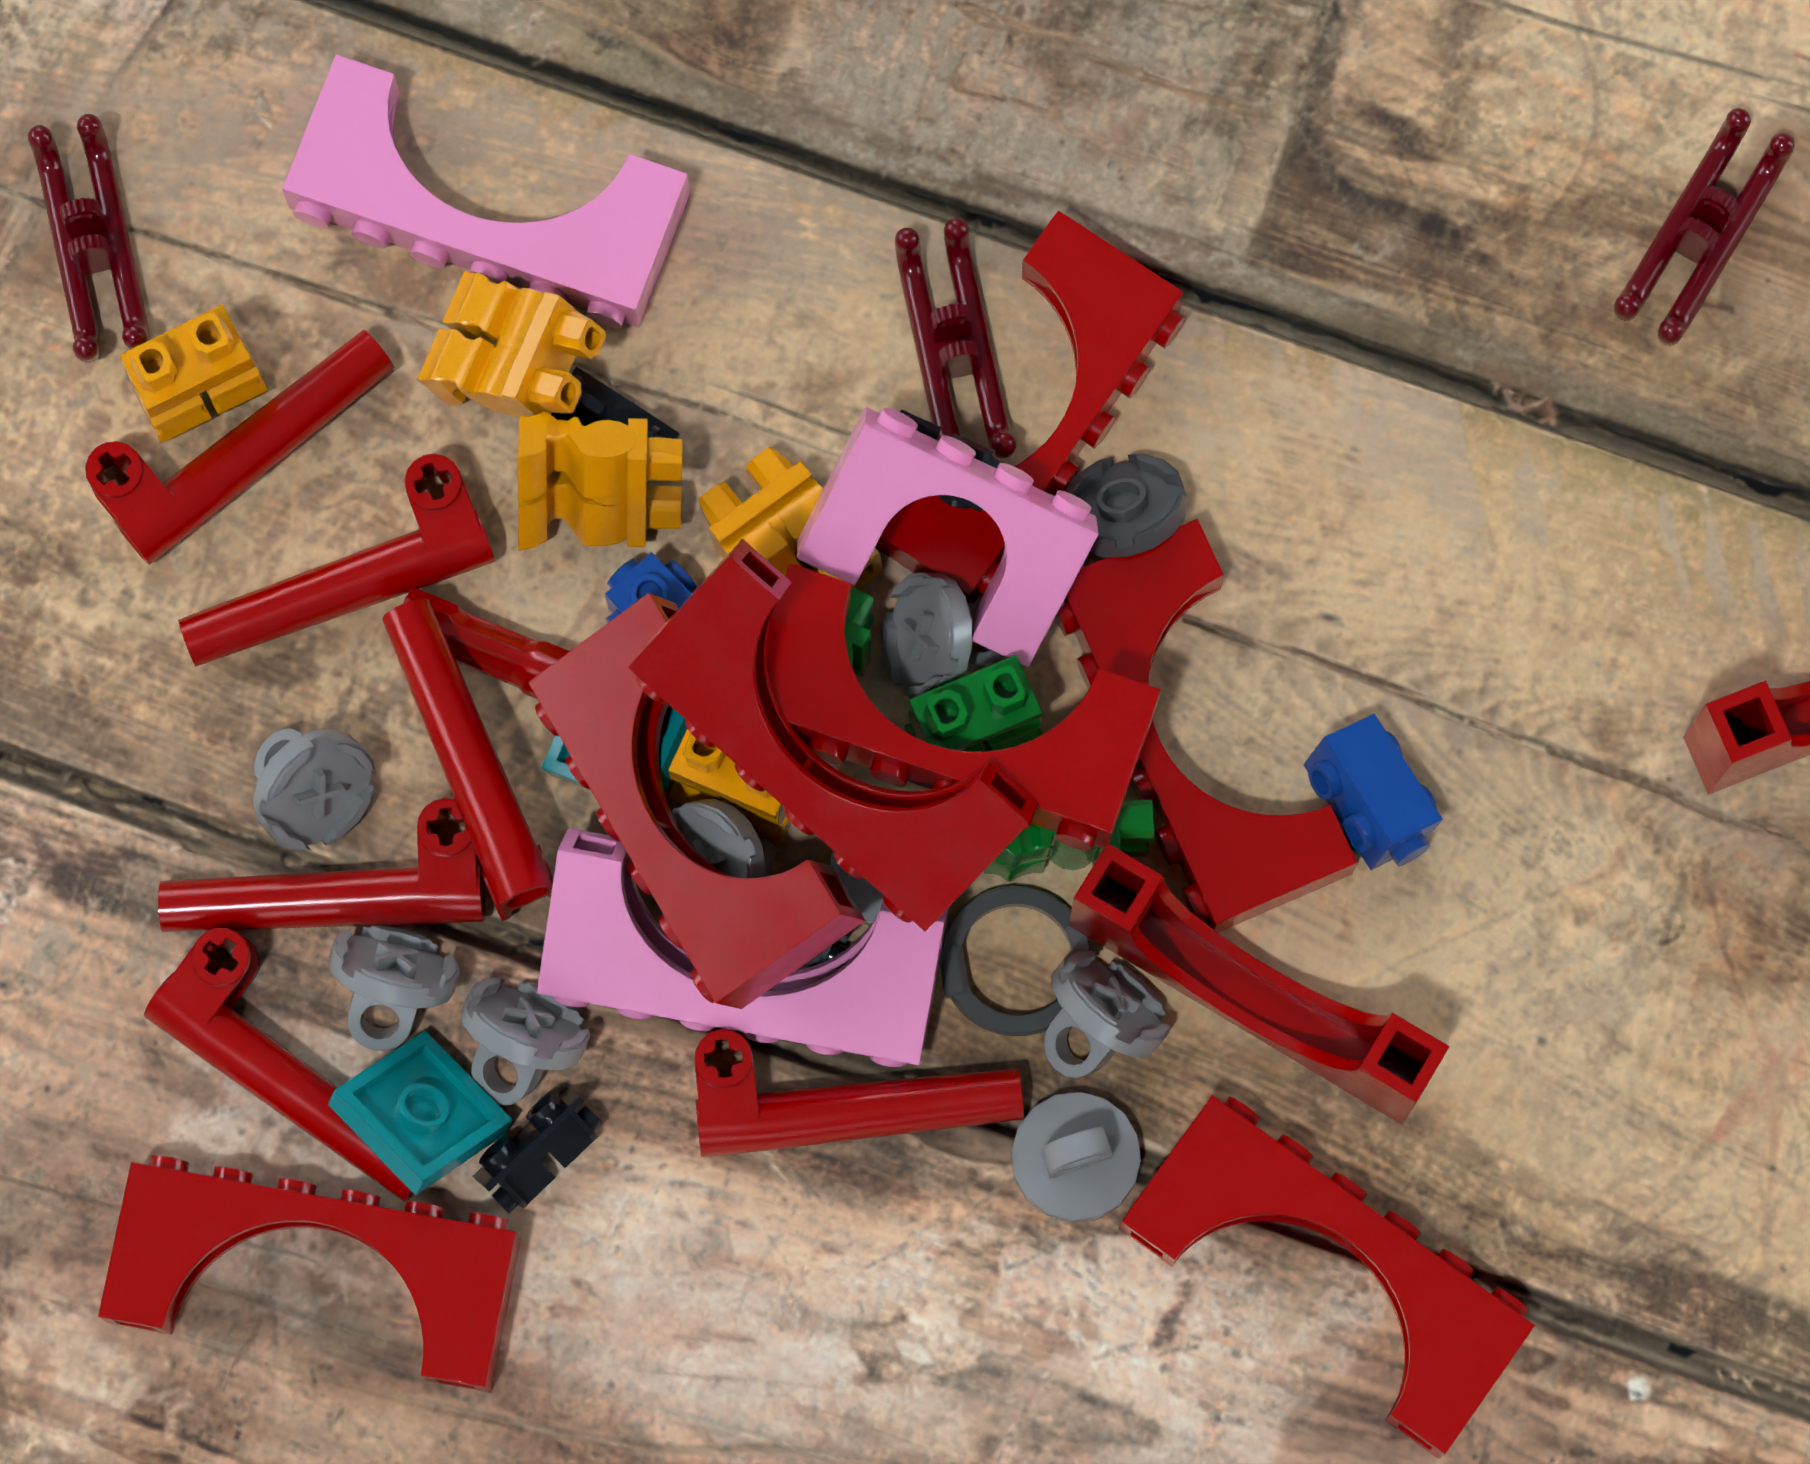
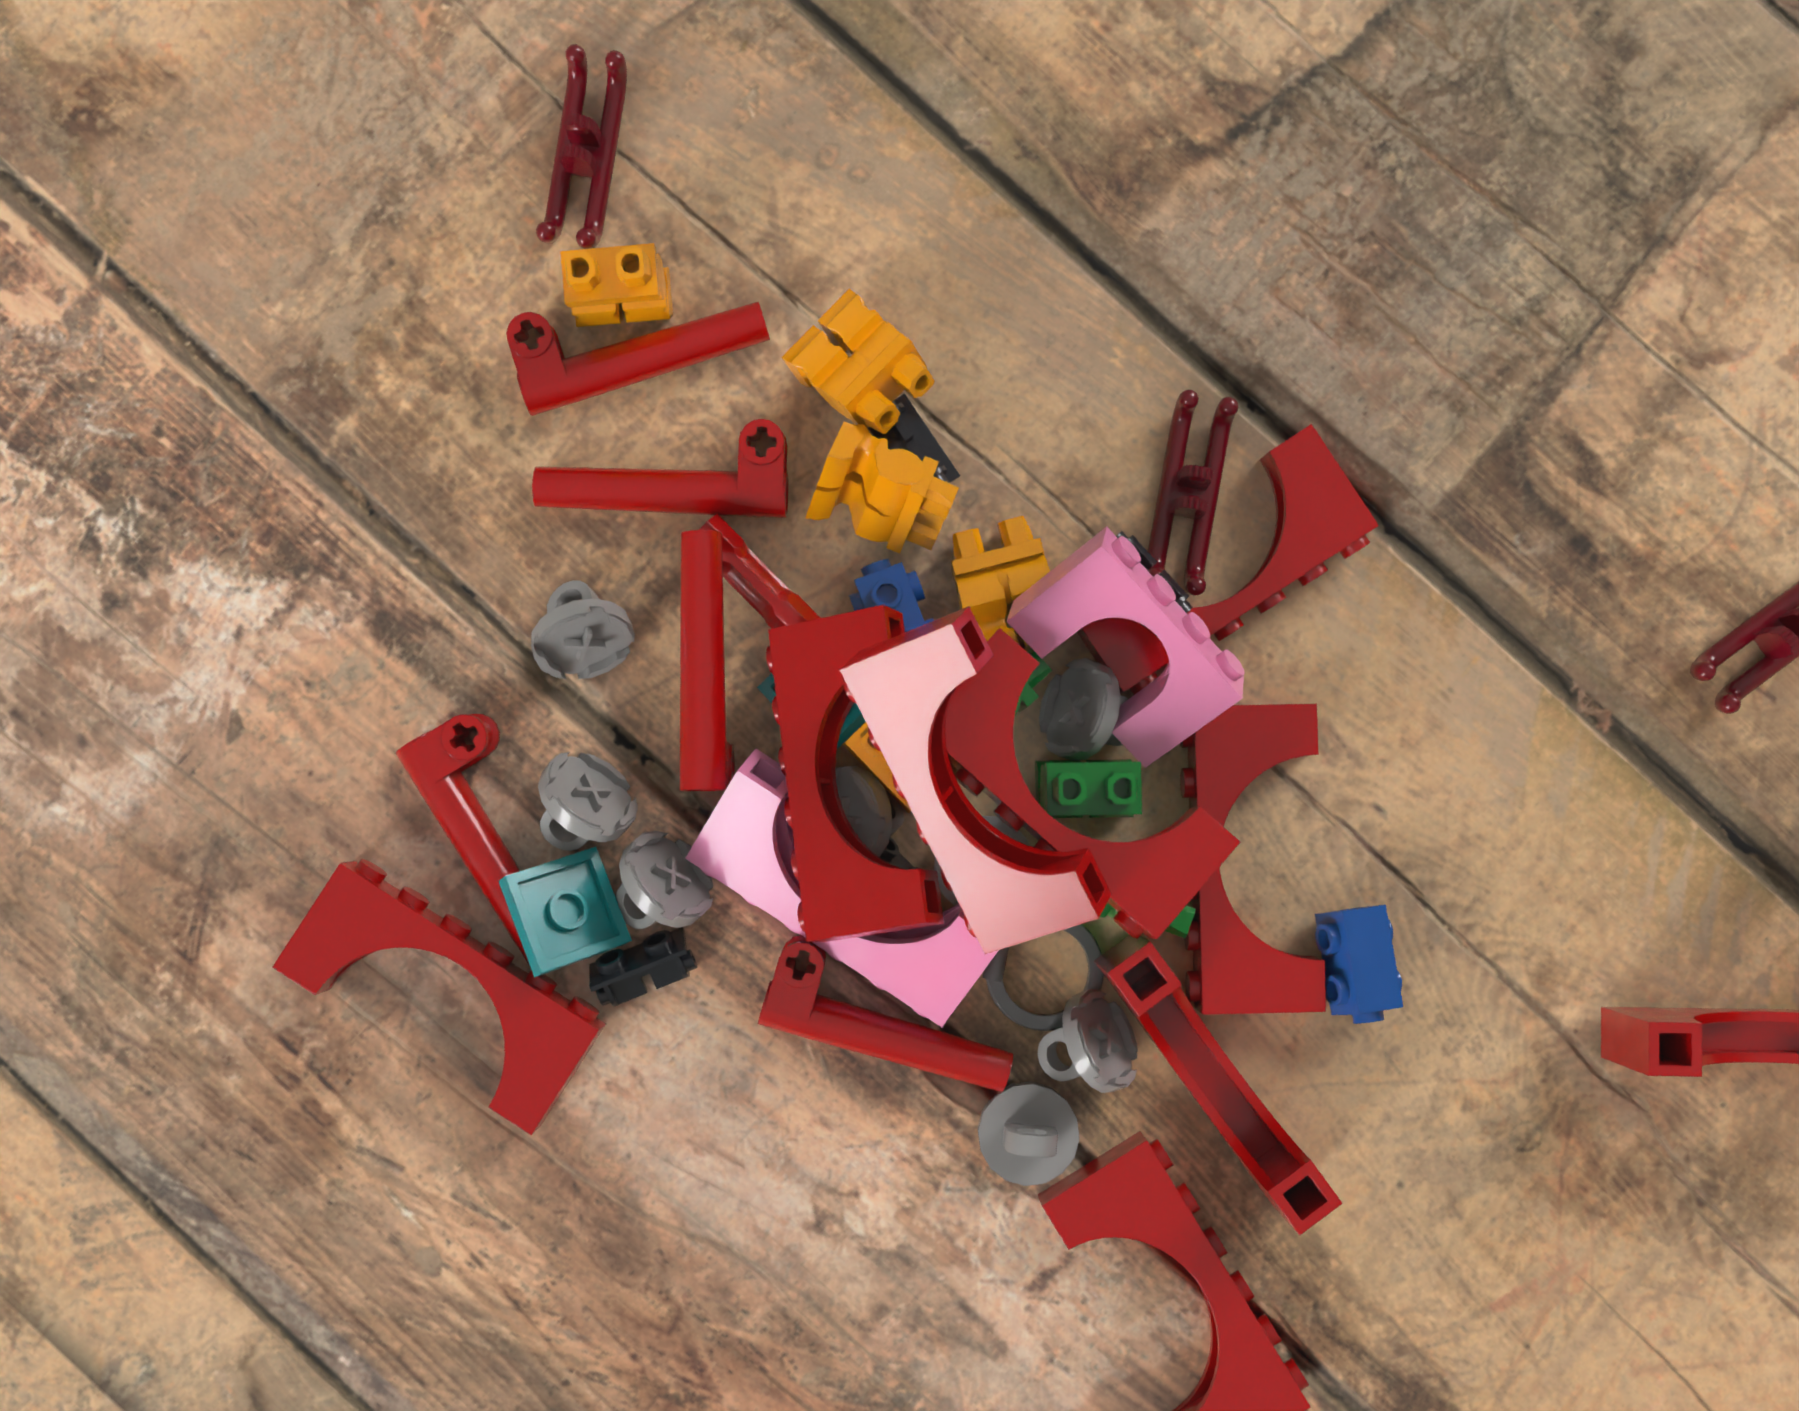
camera: 15 degrees right, 10 degrees up
(440, 890) = (643, 747): red axle -> none
(592, 257) = (949, 315): bright pink arch -> none
(1133, 503) = (1276, 667): dark grey tile -> none

